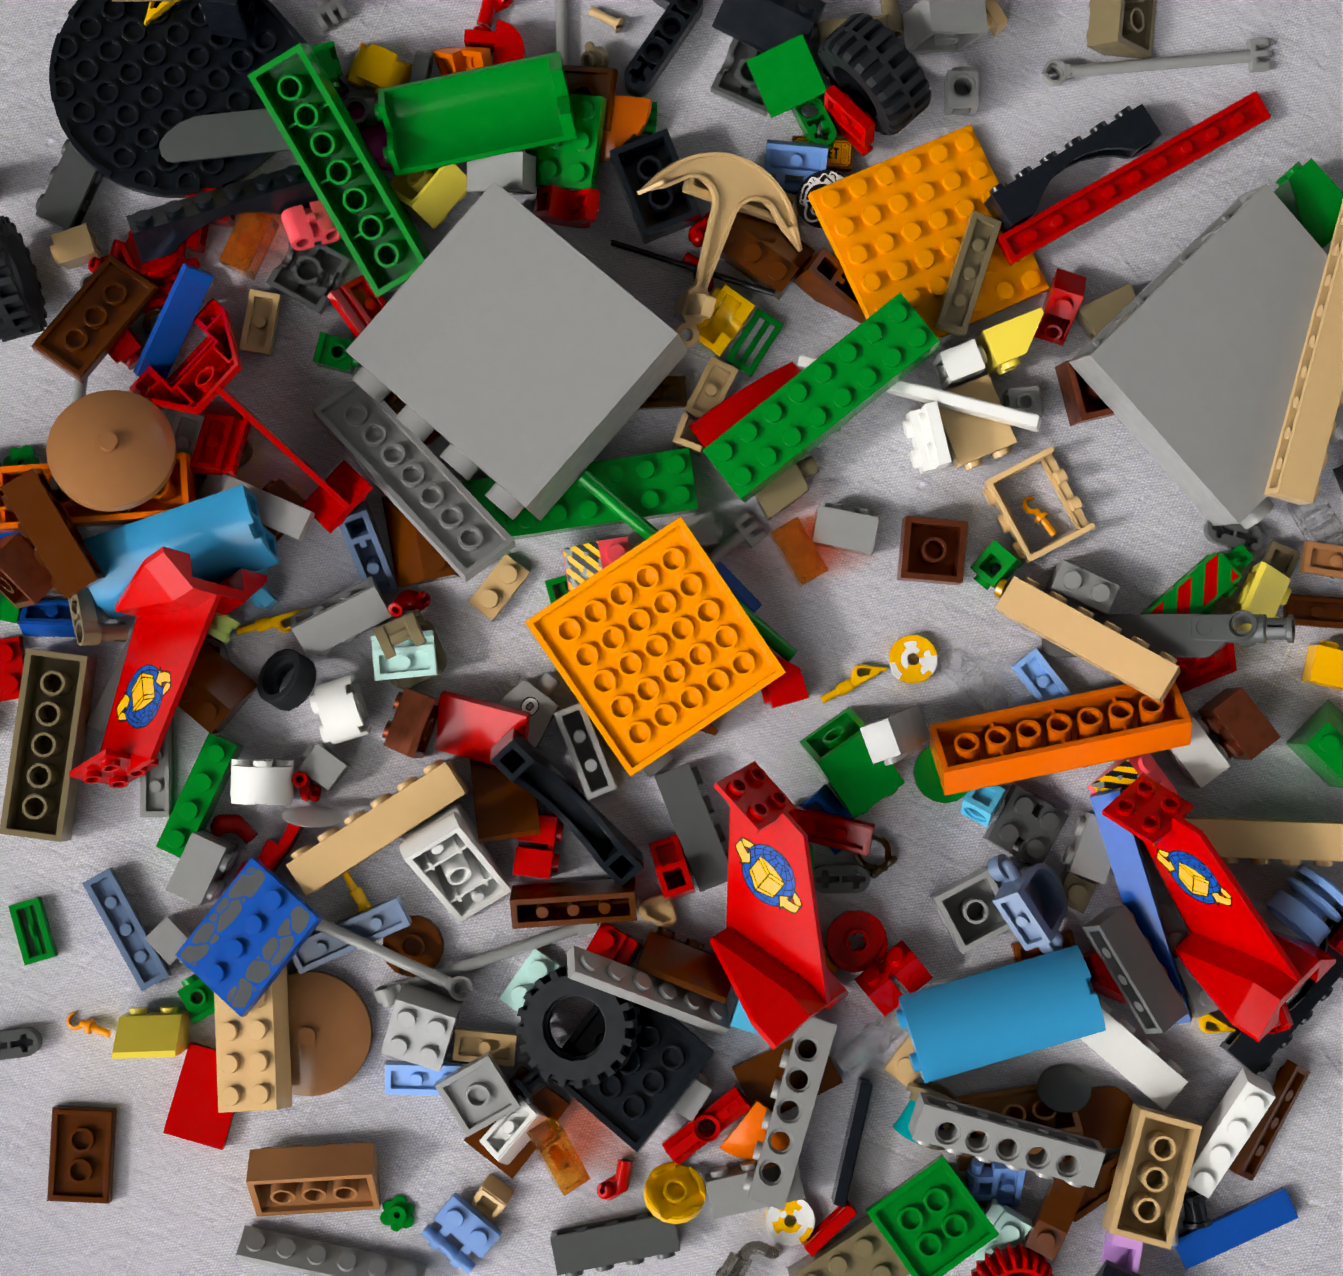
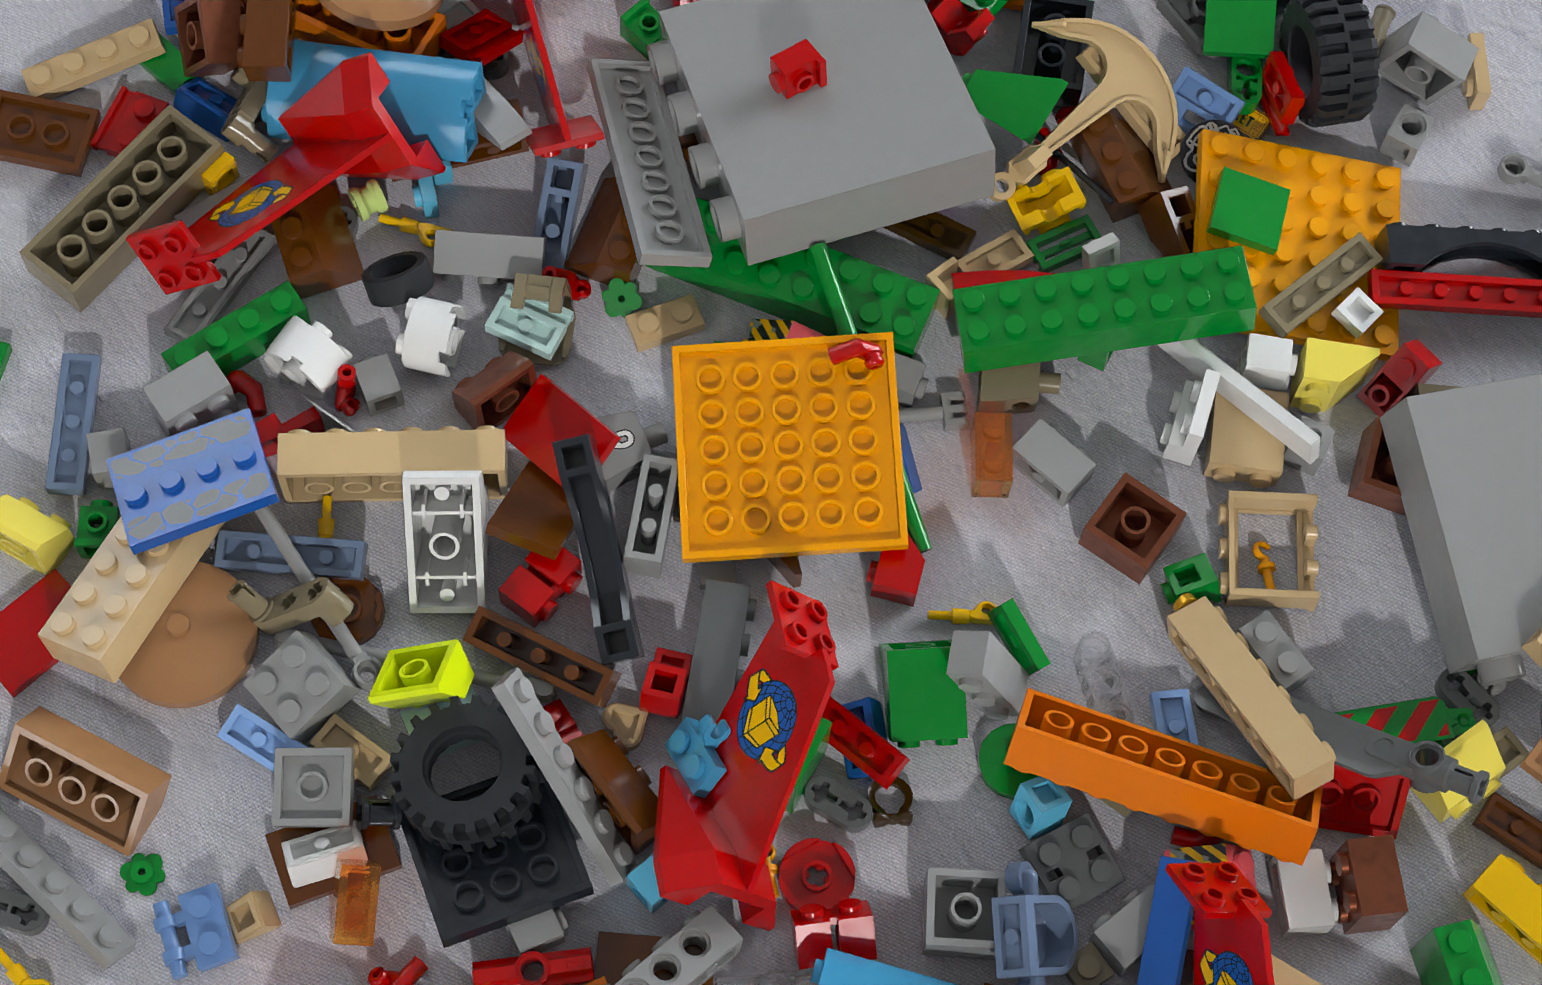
camera: 25 degrees right, 20 degrees down
(98, 672) = (220, 174): none -> yellow tile
(379, 977) = (293, 606): none -> dark tan beam
(453, 594) = (614, 305): none -> green plant
(487, 352) = (797, 69): none -> red brick
(503, 975) = (422, 676): none -> neon yellow slope
(656, 260) = (1014, 100): none -> green slope
(663, 550) = (860, 349): none -> red arm
(724, 913) = (694, 752): none -> dark azure plate
(787, 338) = (1101, 252): none -> white plate
(882, 245) = (1248, 211): none -> green tile
(897, 684) = (1018, 636): none -> green tile
(926, 659) = (1061, 619): yellow piece -> none
(1005, 279) = (1357, 312): none -> white plate

